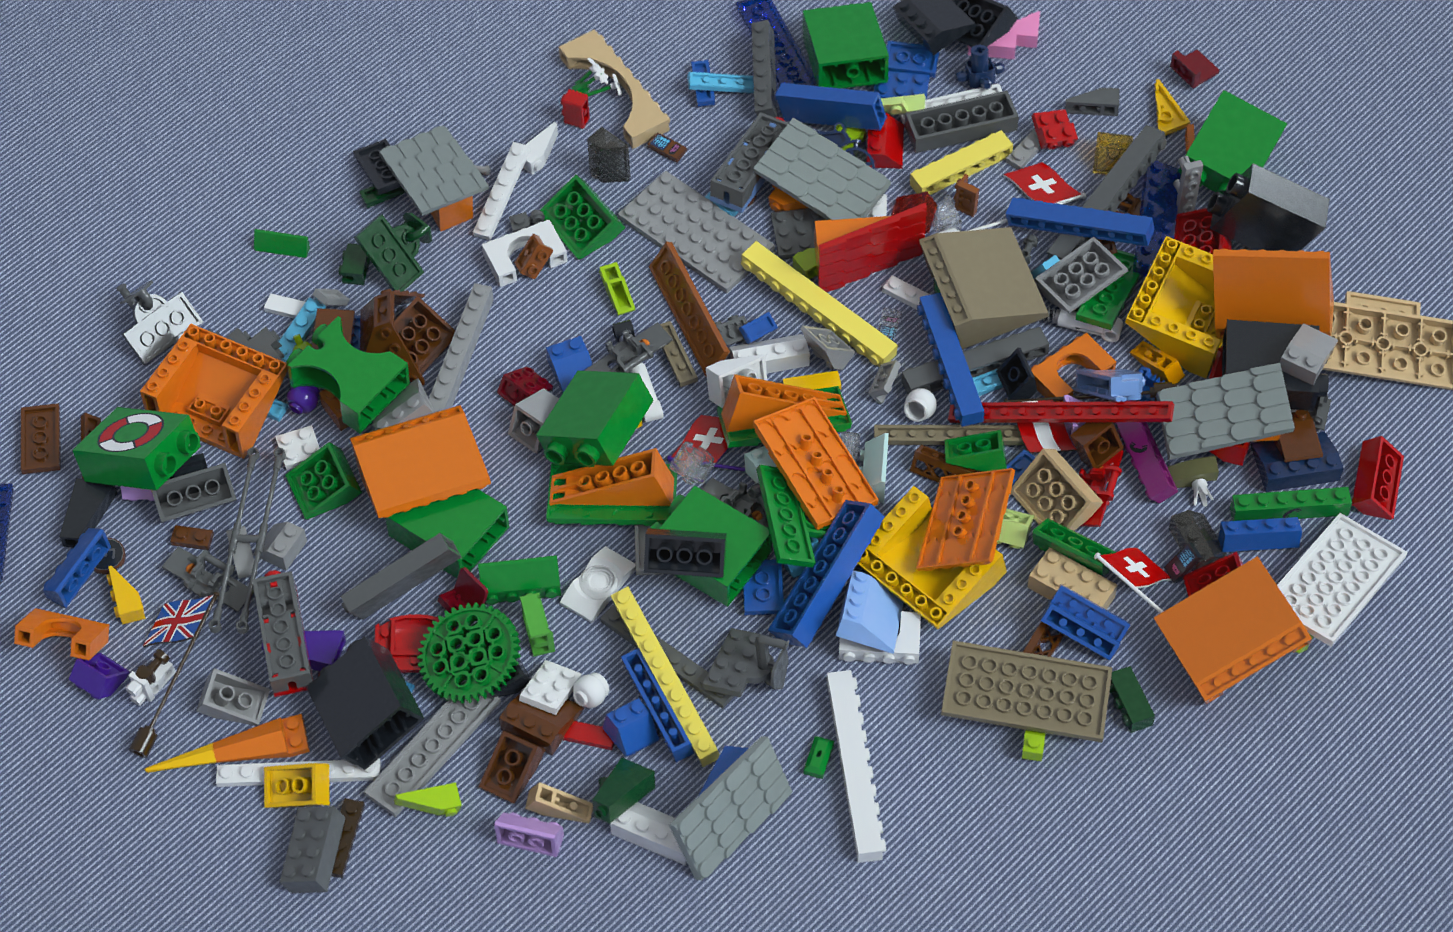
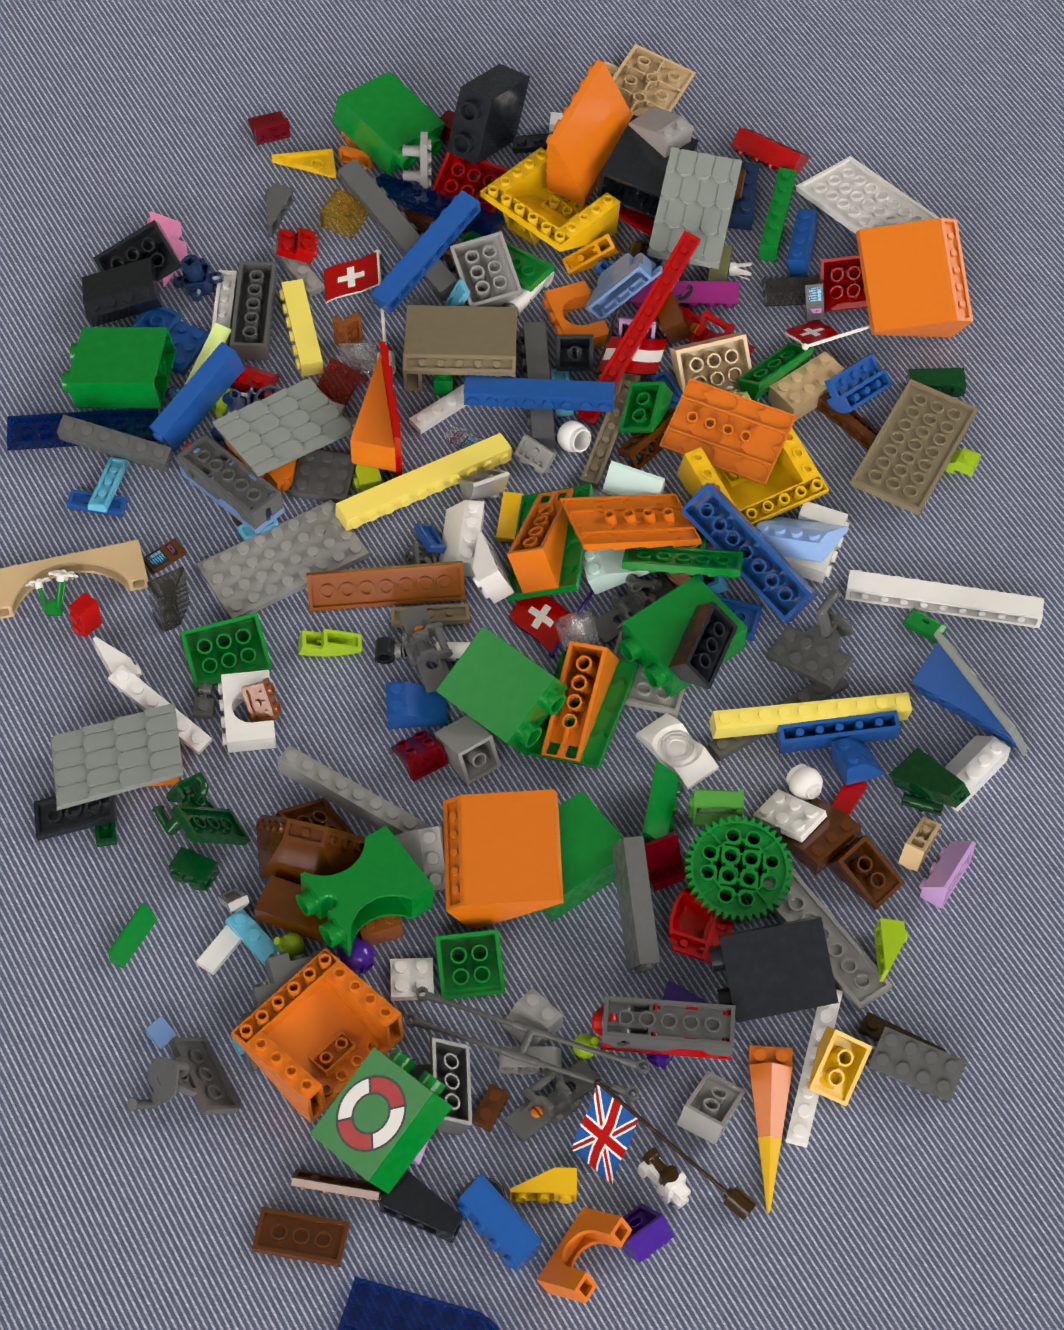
camera: 75 degrees left, 0 degrees up
(199, 291) = (160, 1032): none -> medium blue slope

